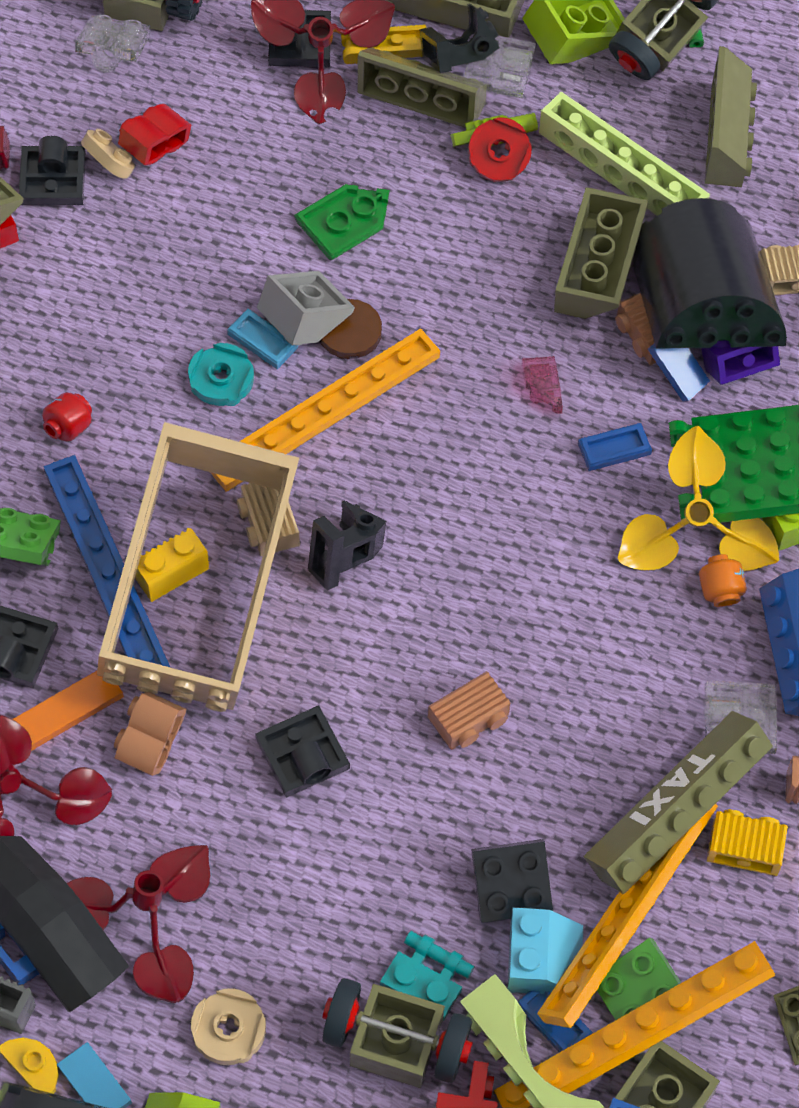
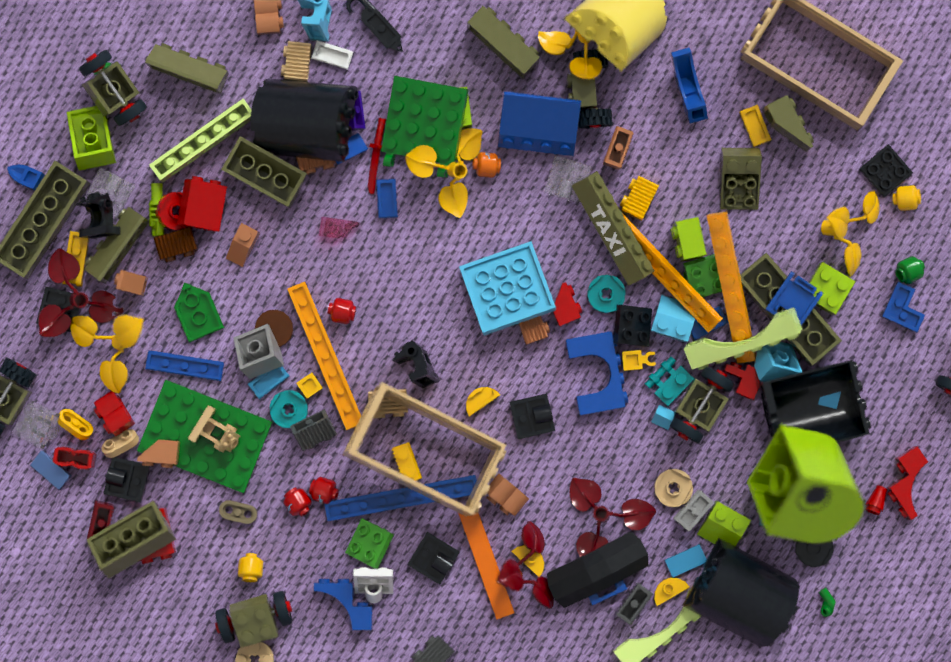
camera: 75 degrees left, 25 degrees up
(32, 339) = (238, 512): none -> dark tan plate
(40, 810) = (535, 562): none -> yellow plate
(46, 77) = (52, 472): none -> medium blue slope
(70, 94) = (78, 458): none -> red brick
(95, 451) = (323, 490): none -> red head
(106, 202) = (161, 452): none -> nougat slope
(122, 92) = (75, 424): none -> yellow plate
(146, 270) = (177, 415): none -> green plate
(163, 253) = (207, 424): none -> tan tile
(192, 407) = (313, 430): none -> dark grey brick
(192, 1066) = (693, 510): none -> light grey hinge
(255, 219) = (184, 365): none -> blue tile
(268, 396) = (309, 385): none -> yellow plate
(289, 92) = (127, 332): none -> yellow plant
(311, 659) = (480, 398): none -> yellow plate
(361, 971) = (663, 417): none -> medium azure slope
(367, 110) = (131, 282): none -> nougat slope
(376, 876) = (612, 395): none -> blue arch
(406, 415) = (342, 311): none -> red head
(447, 165) = (176, 244): none -> reddish brown brick
(449, 903) = (634, 359): none -> yellow plate
(476, 253) = (242, 244): none -> nougat slope
(513, 759) = (566, 308): none -> red slope
(518, 653) = (507, 288): none -> medium azure plate
(521, 180) = (202, 204): none -> red brick
(554, 807) = (595, 293): none -> teal plate
(696, 411) = (375, 155): none -> red sword
(701, 936) = (689, 239): none -> lime brick

